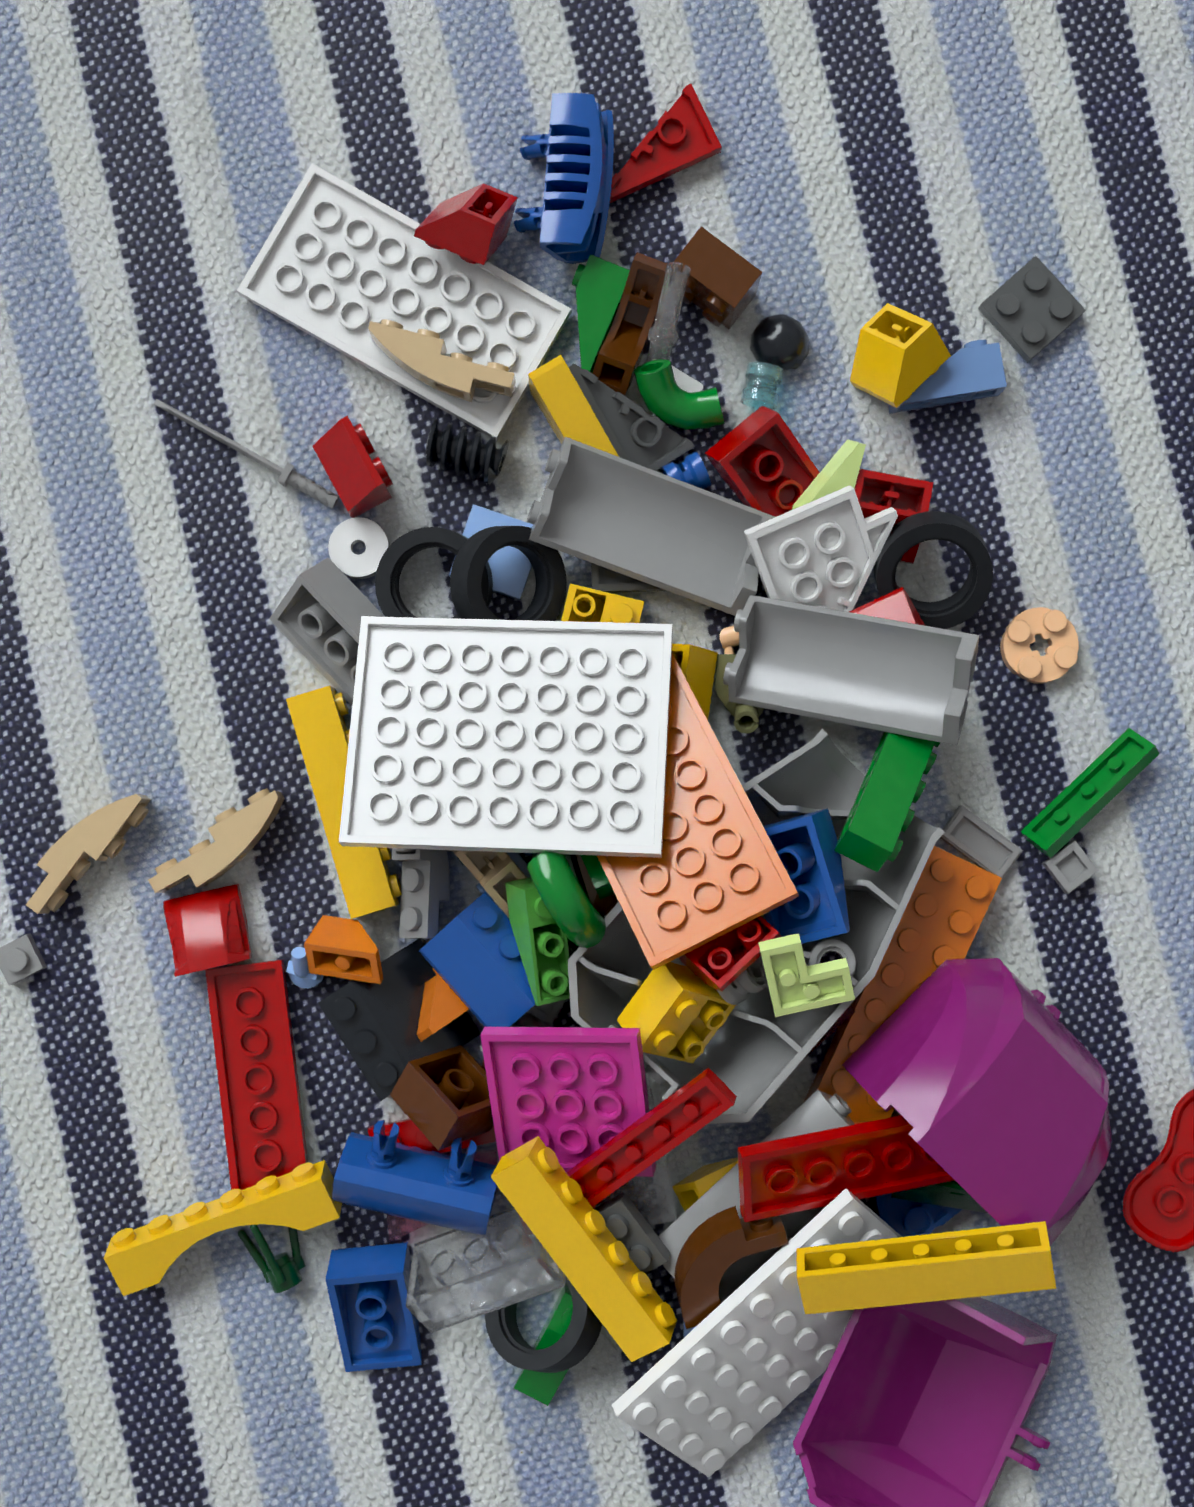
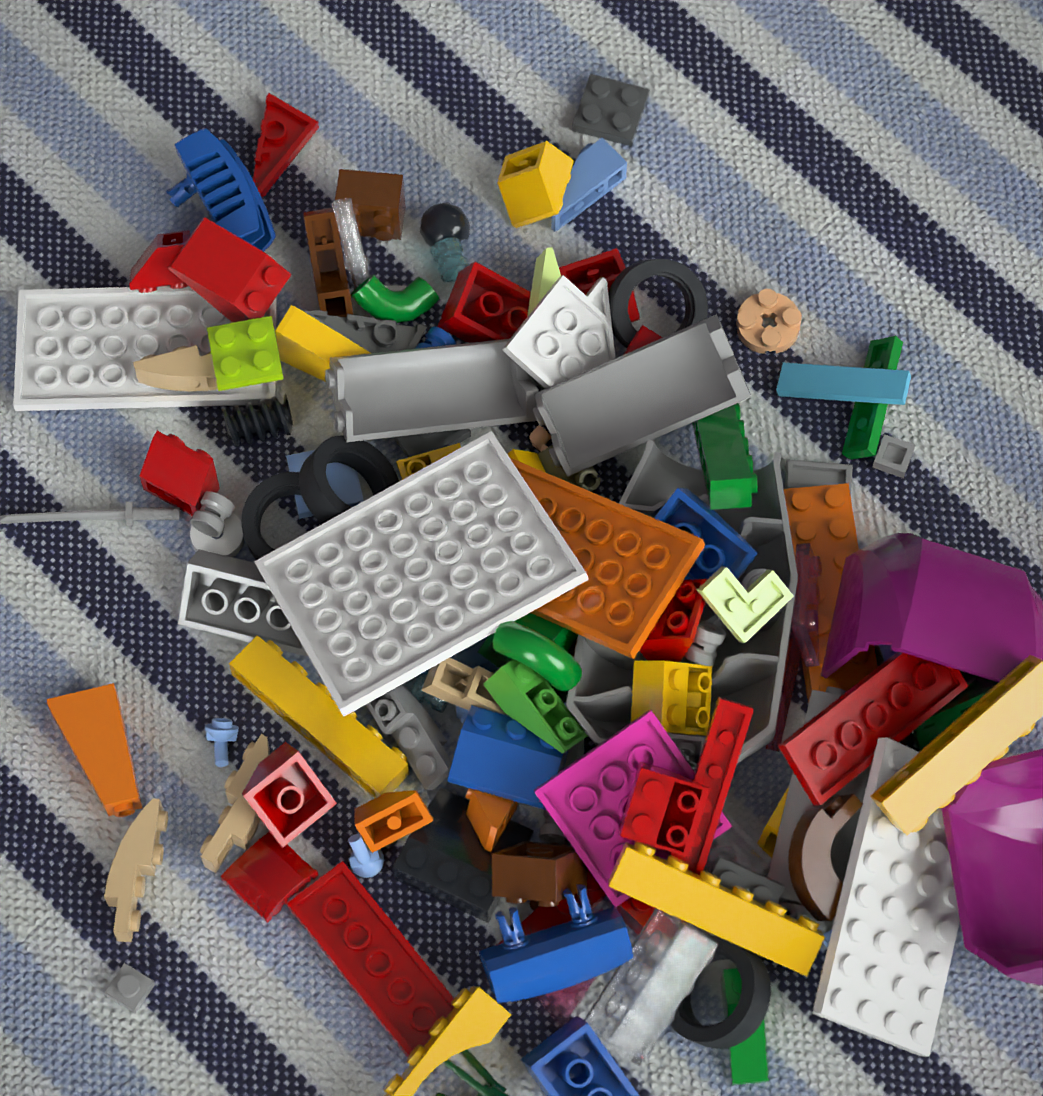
camera: 30 degrees left, 20 degrees down
(123, 701) = (99, 741): none -> orange slope
(244, 757) = (221, 732): none -> light blue plate
(261, 868) = (286, 794): none -> red slope
(368, 525) = (212, 514): none -> light grey wheel
(484, 379) = (245, 353): none -> lime plate
(520, 278) = (229, 272): none -> red slope
(589, 1134) = (663, 809): none -> red slope
(597, 300) = (293, 255): green slope -> none
(861, 1011) = (805, 611): none -> clear pink wing
(1069, 764) = (843, 383): none -> medium azure tile

